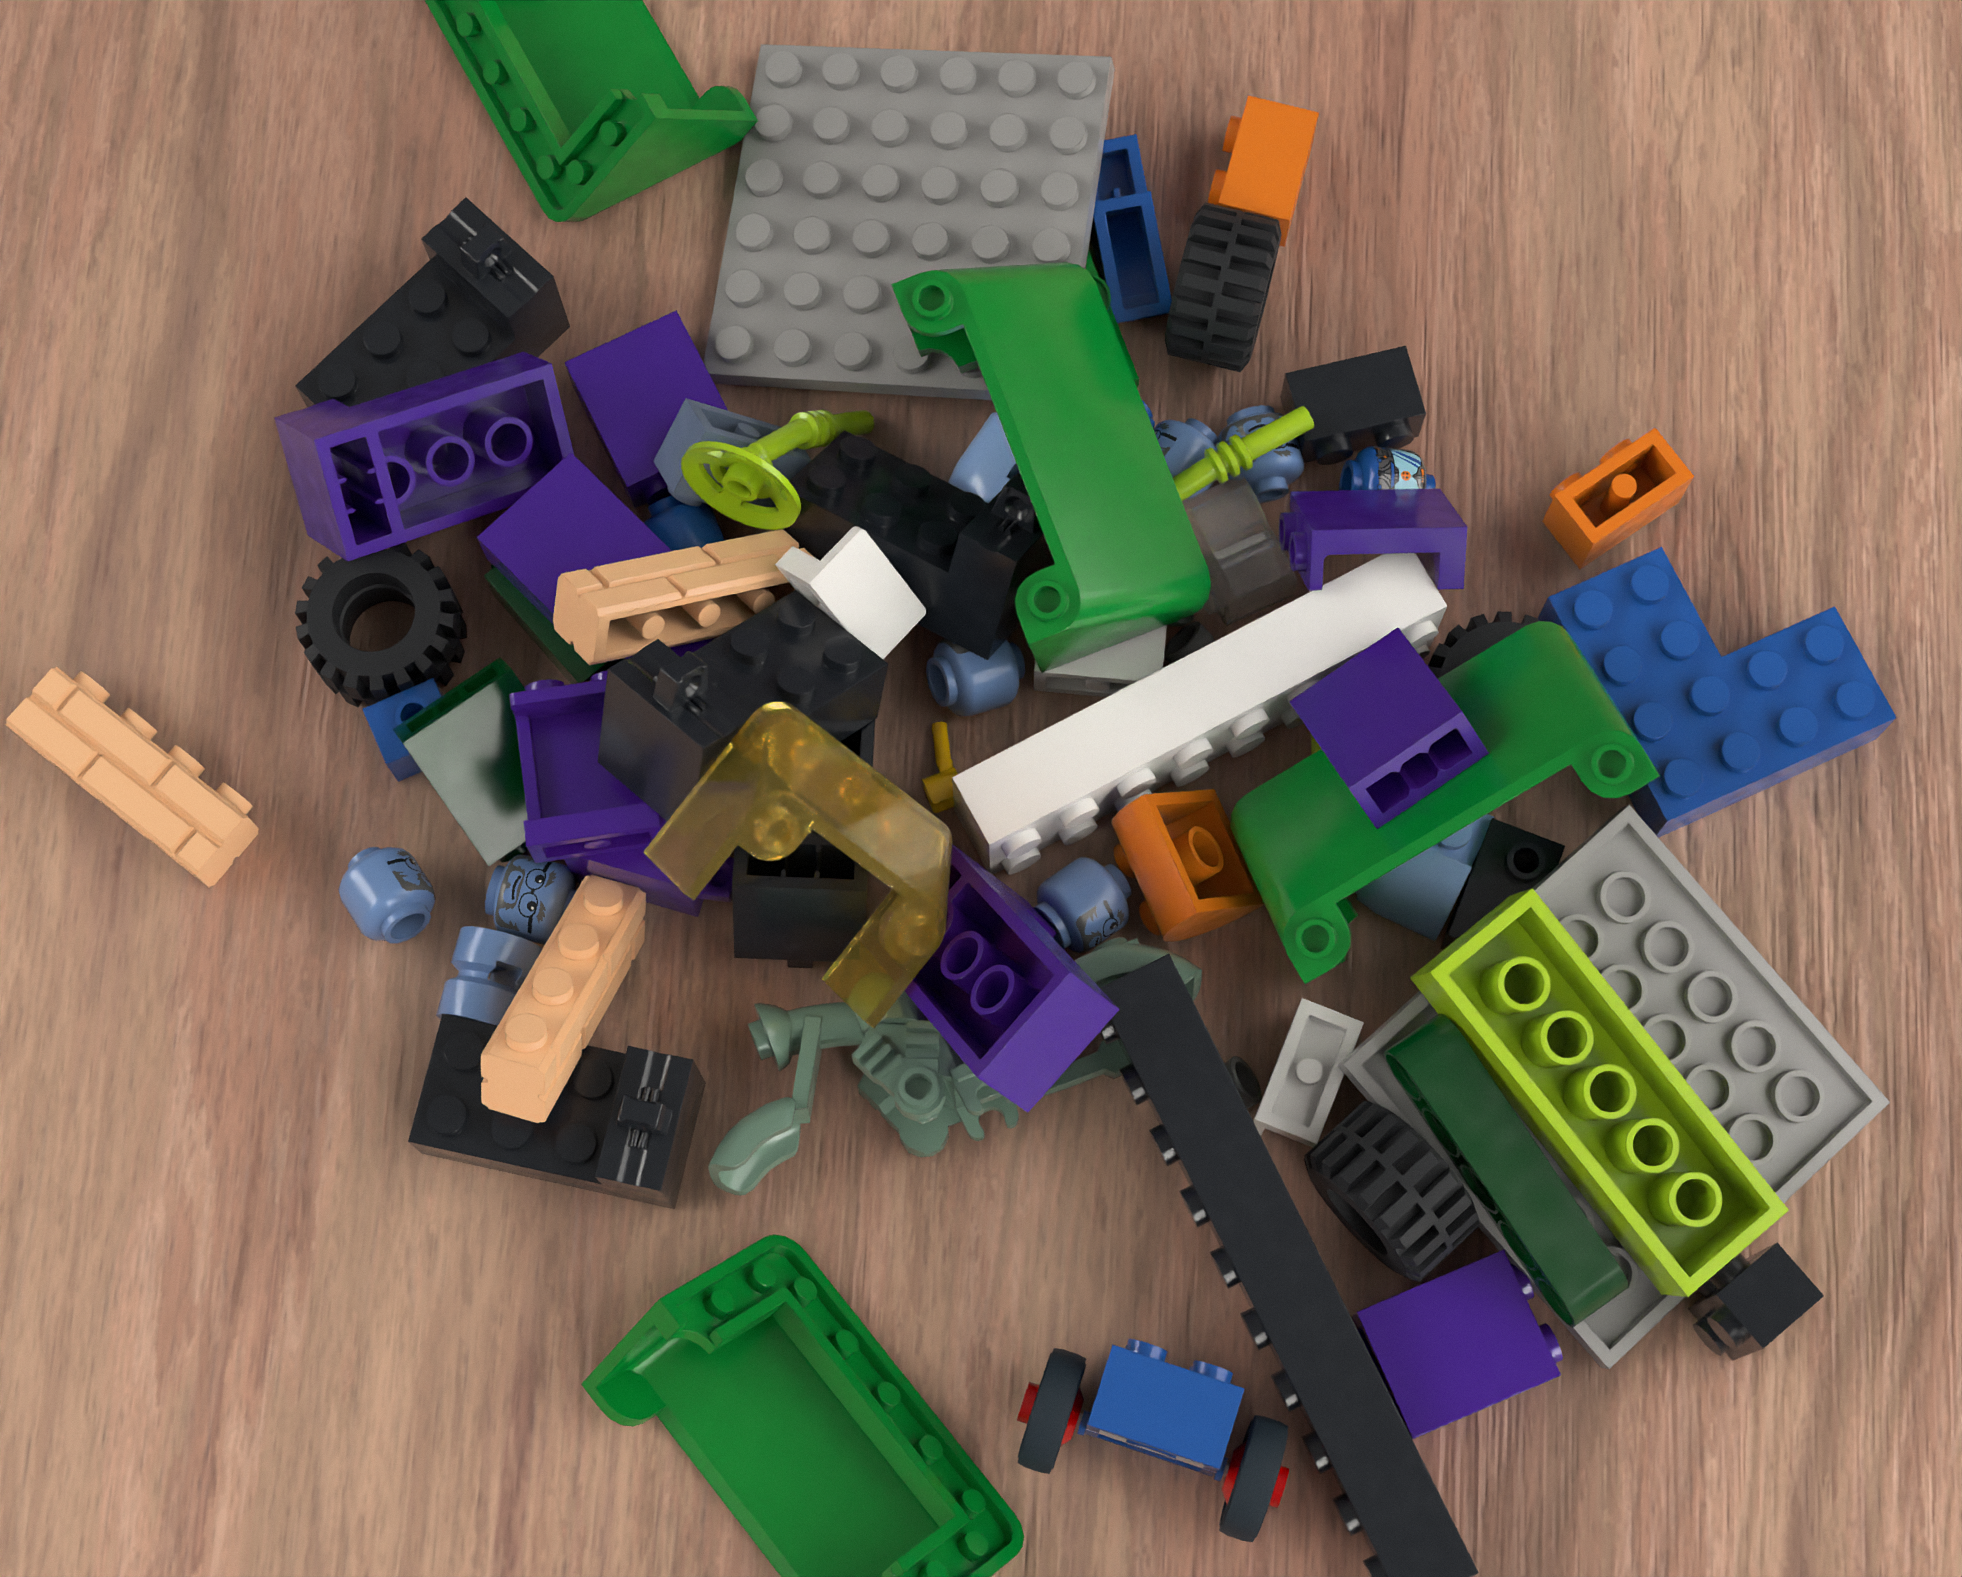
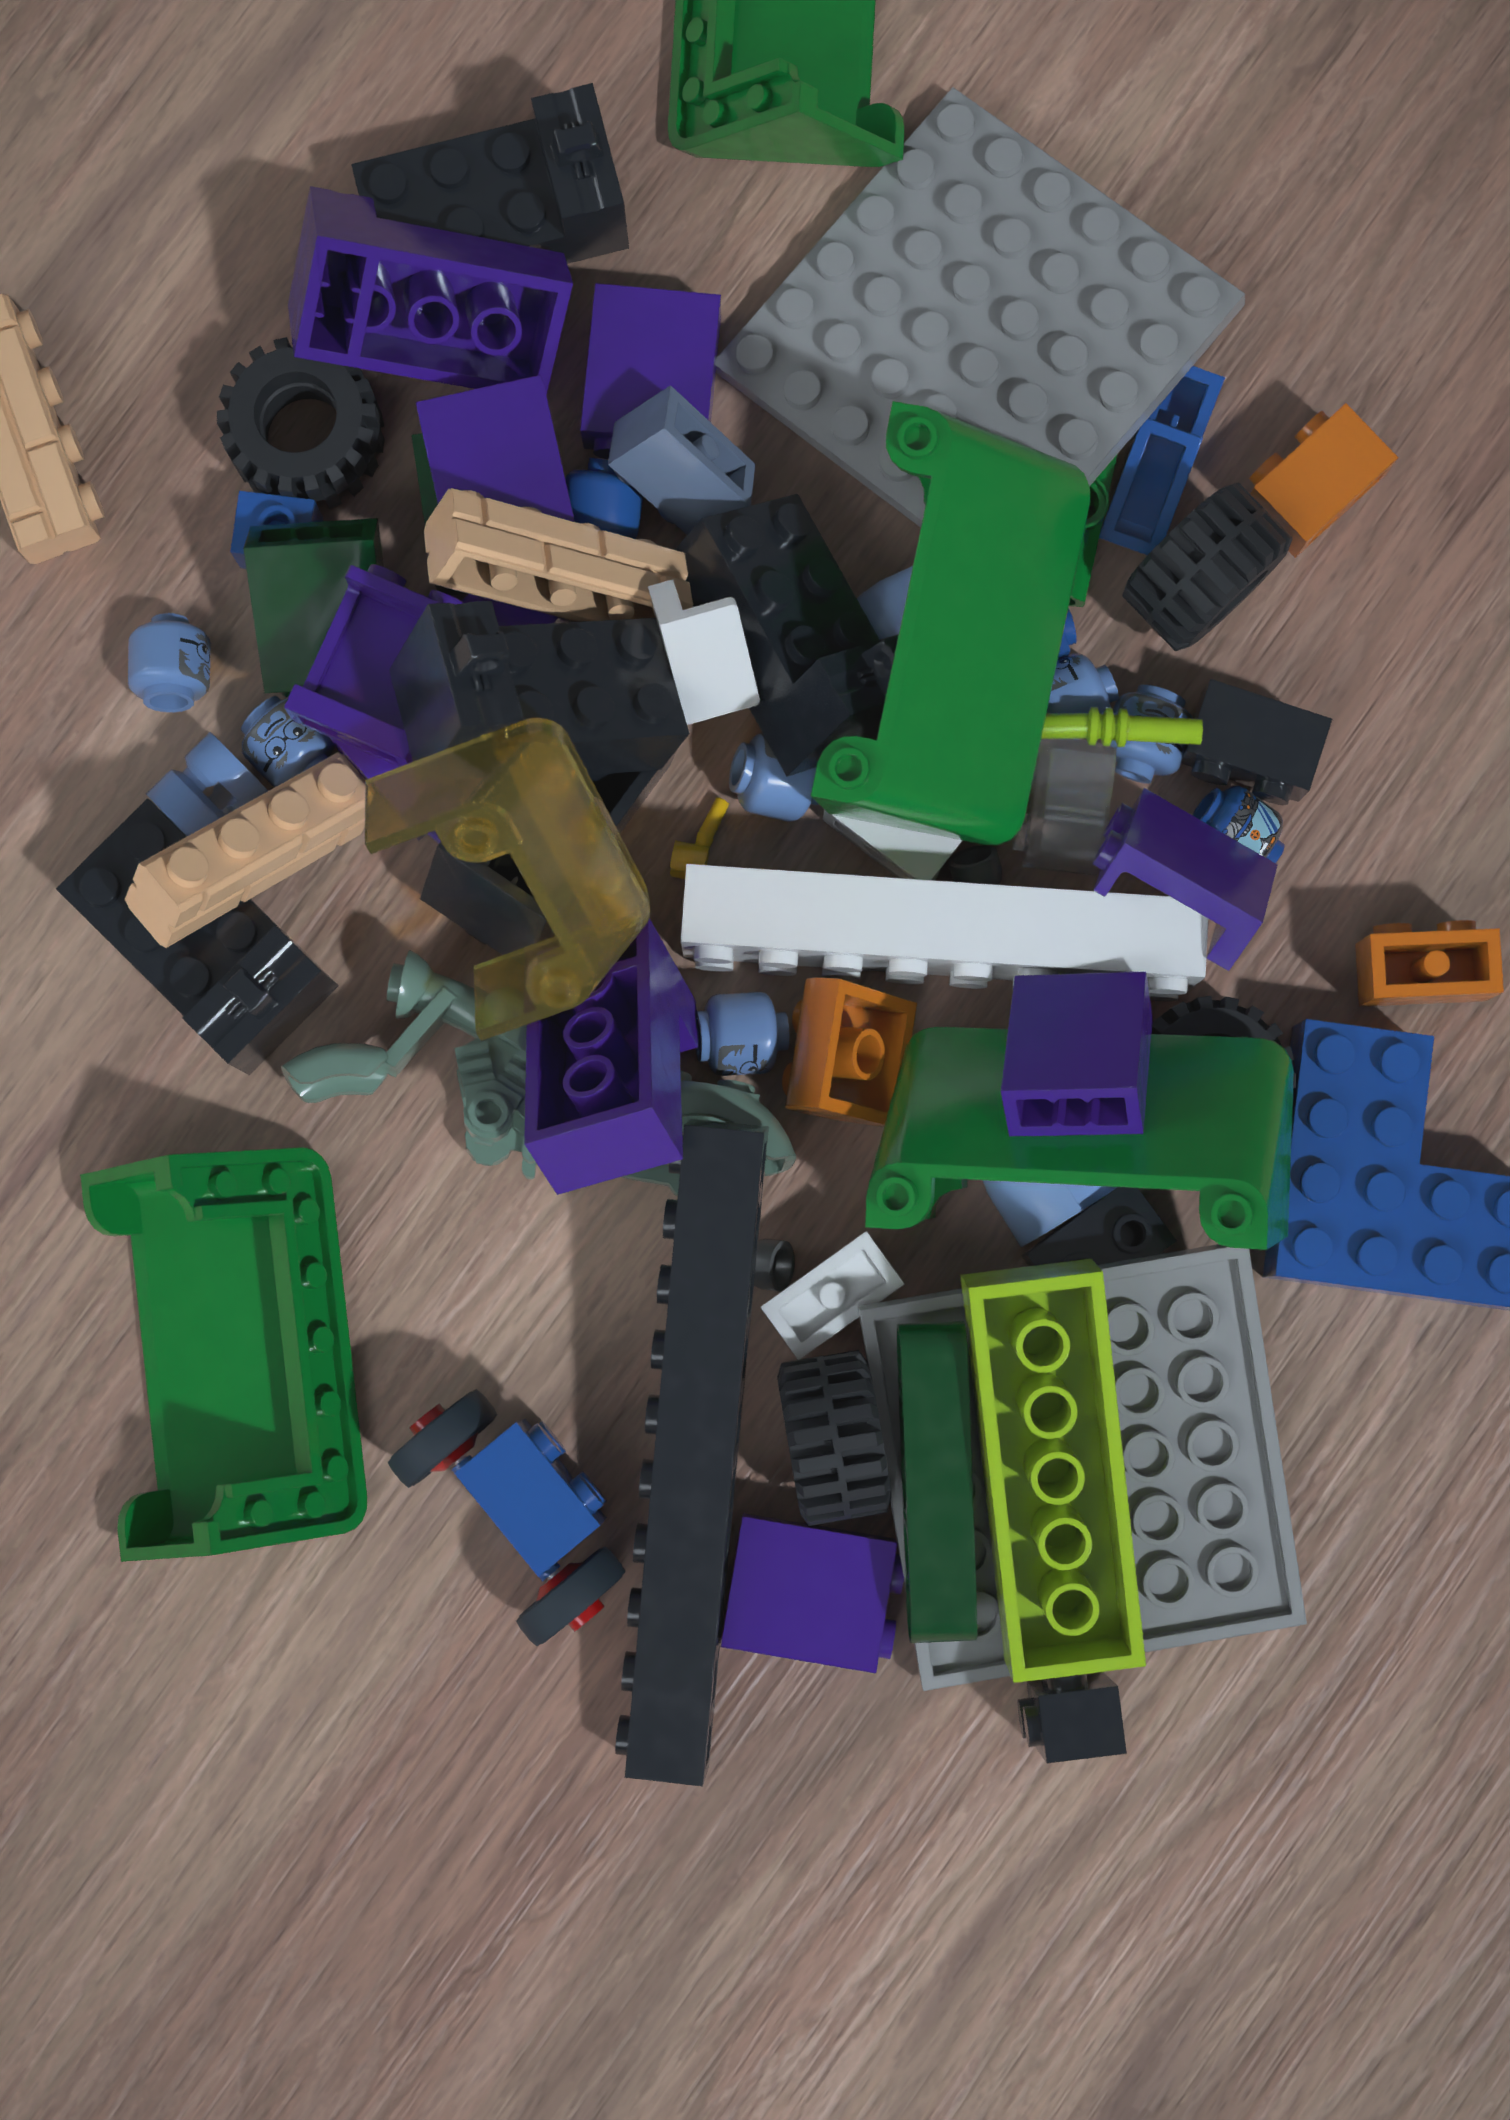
camera: 30 degrees right, 10 degrees up
(752, 470) = (685, 484): lime dish -> none

